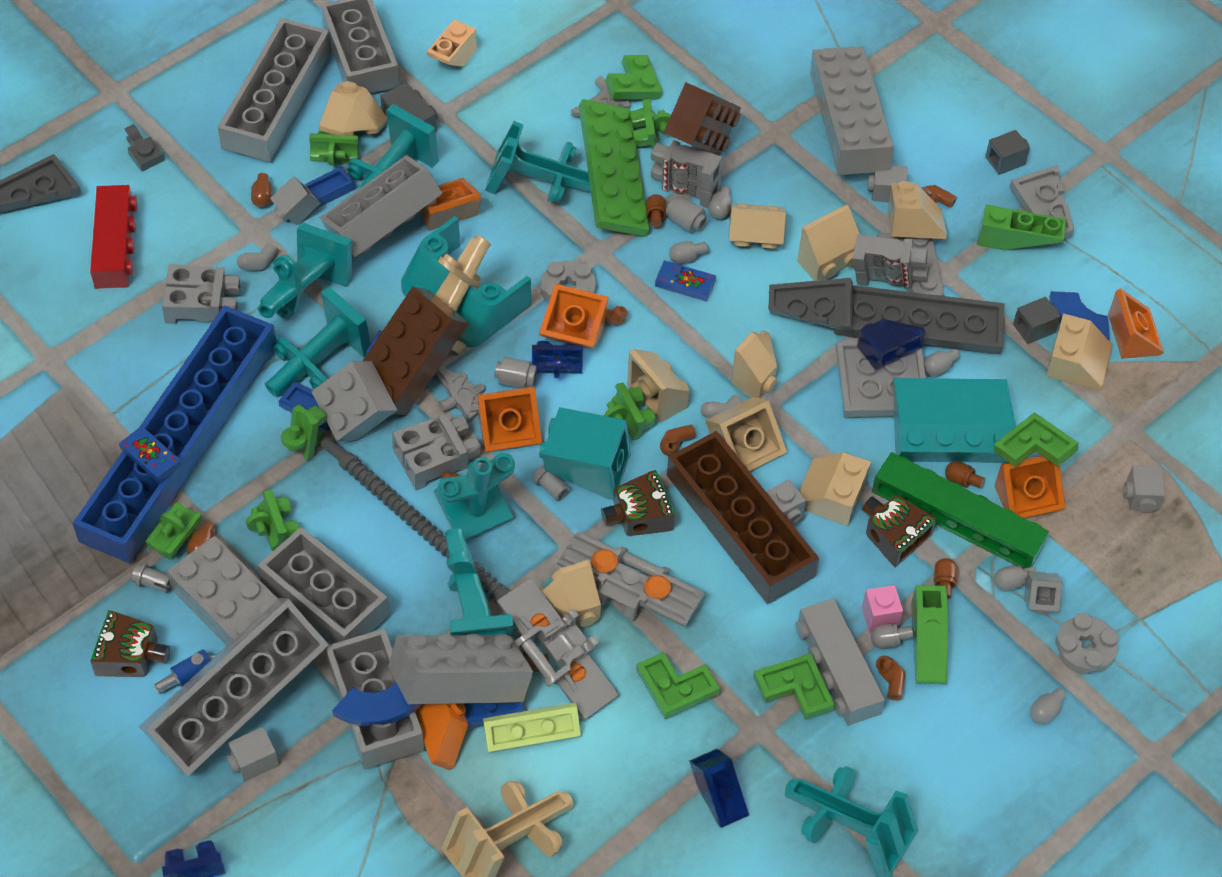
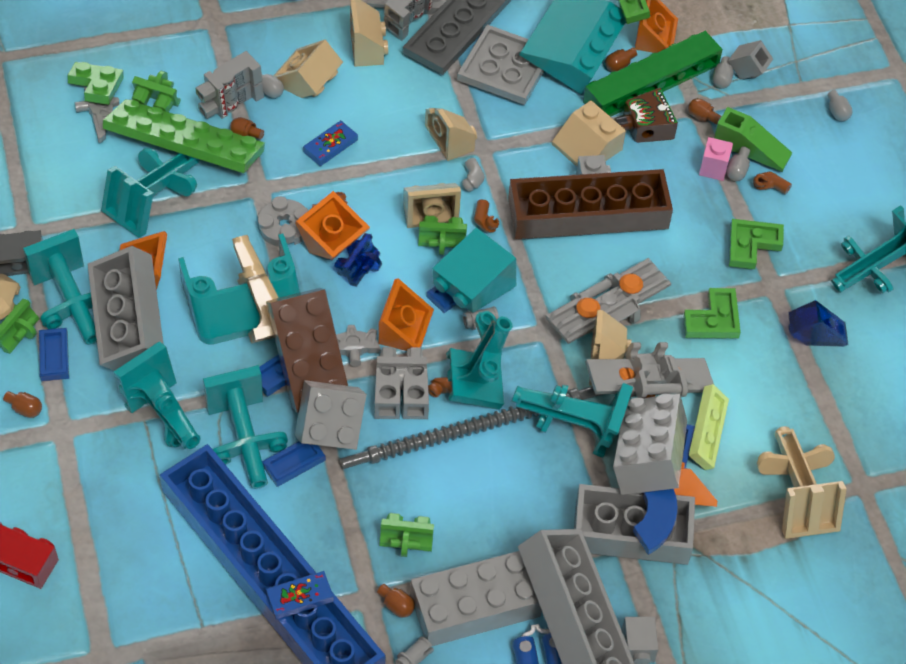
camera: 65 degrees left, 0 degrees up
(173, 530) = (377, 615): bright green hips -> none
(198, 292) = (115, 499): light grey hips -> none
(257, 261) = (103, 440): light grey arm -> none
(294, 201) = (60, 379): light grey brick -> none
(304, 430) = (332, 468): bright green hips -> none
(323, 588) = (504, 518): light grey brick -> none
(515, 373) = (357, 294): light grey brick -> none
(641, 506) = (540, 265): torso -> none
(686, 214) = (267, 110): light grey brick -> none
(686, 252) = (303, 128): light grey cylinder -> none
(703, 120) = (204, 42): reddish brown brick -> none
(750, 432) = (506, 160): tan slope -> none
(814, 302) = (413, 68): dark grey wing -> none
(840, 662) = (730, 201): light grey brick -> none
(889, 341) = (484, 41): clear blue slope -> none
(940, 362) = (511, 22): light grey cylinder -> none
(1091, 629) = (798, 50): light grey plate -> none

